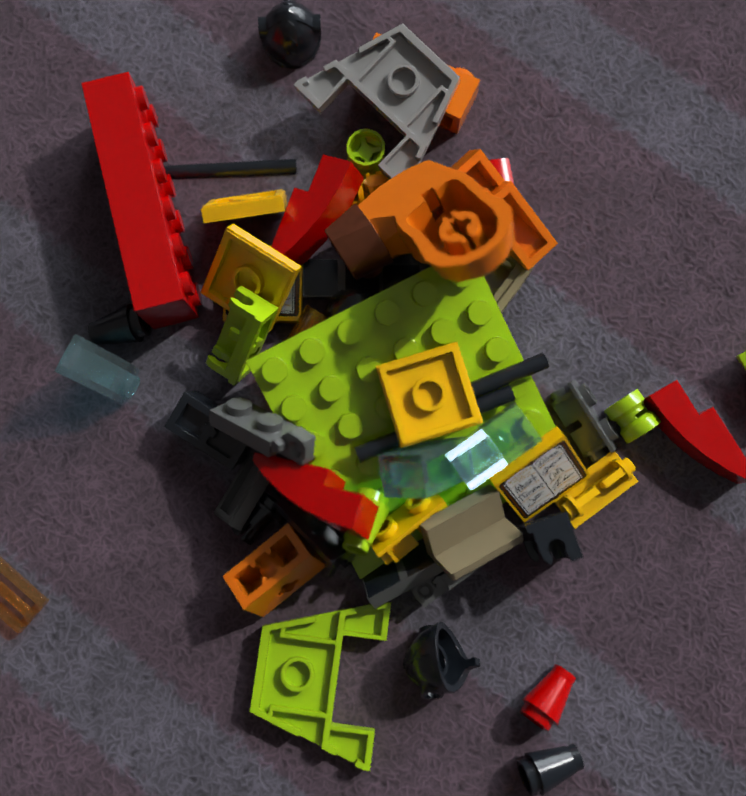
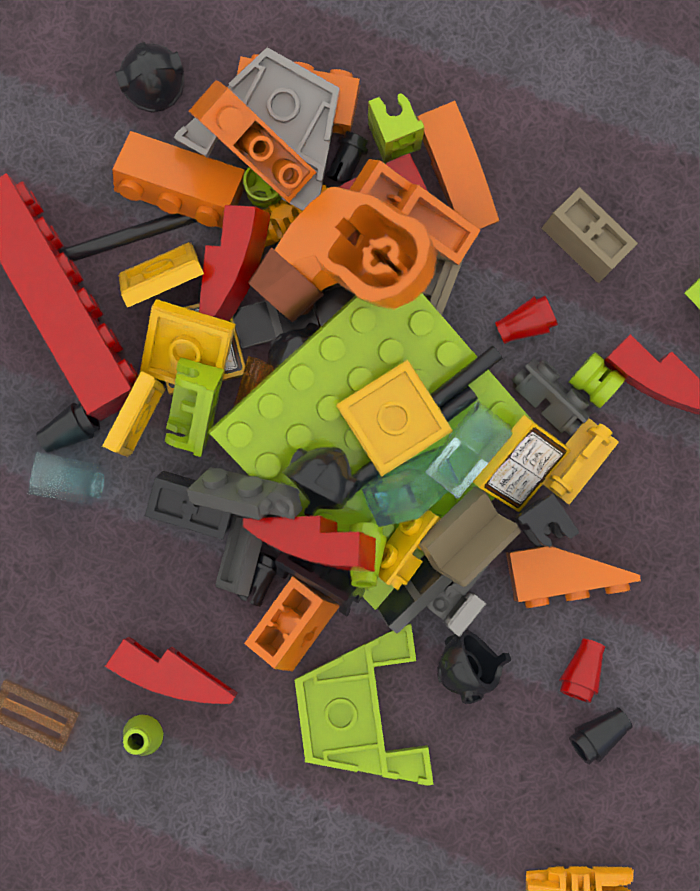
camera: 15 degrees left, 5 degrees up
(106, 636) = (149, 729): none -> lime cone
(142, 587) = (170, 675): none -> slope
(182, 328) = (134, 415): none -> yellow tile
(285, 125) = (176, 179): none -> orange brick
(343, 433) = (323, 478): none -> black helmet
(365, 101) = (252, 140): none -> orange slope
(446, 606) = (464, 613): none -> light grey tile
(452, 147) = (347, 157): none -> black pin
(501, 133) = (394, 134): none -> lime hinge
(542, 589) = (553, 572): none -> orange slope
(550, 178) = (457, 165): none -> orange slope
(580, 342) = (528, 320): none -> red cone
(658, 278) = (589, 235): none -> dark tan hinge

